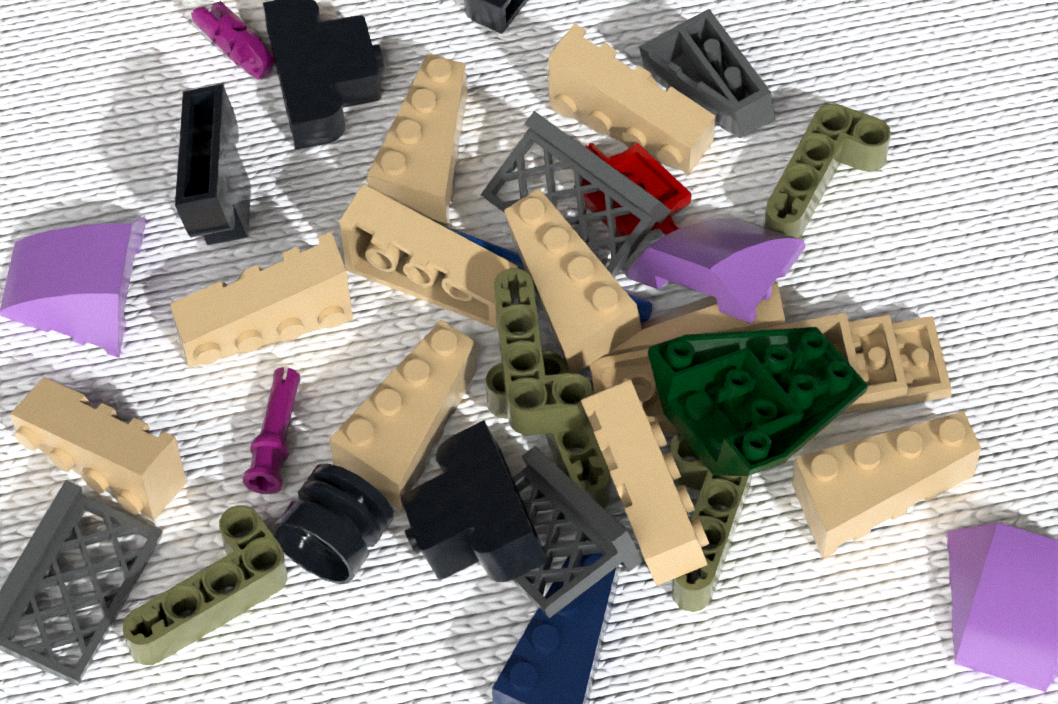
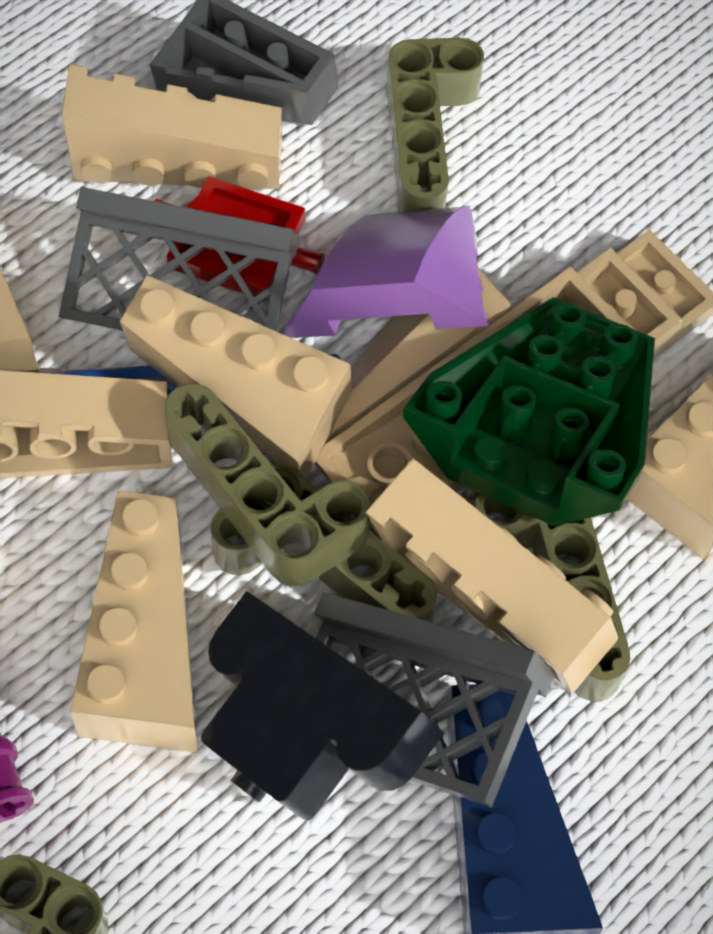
camera: 35 degrees left, 5 degrees up
(333, 523) = (138, 820): black wheel -> none

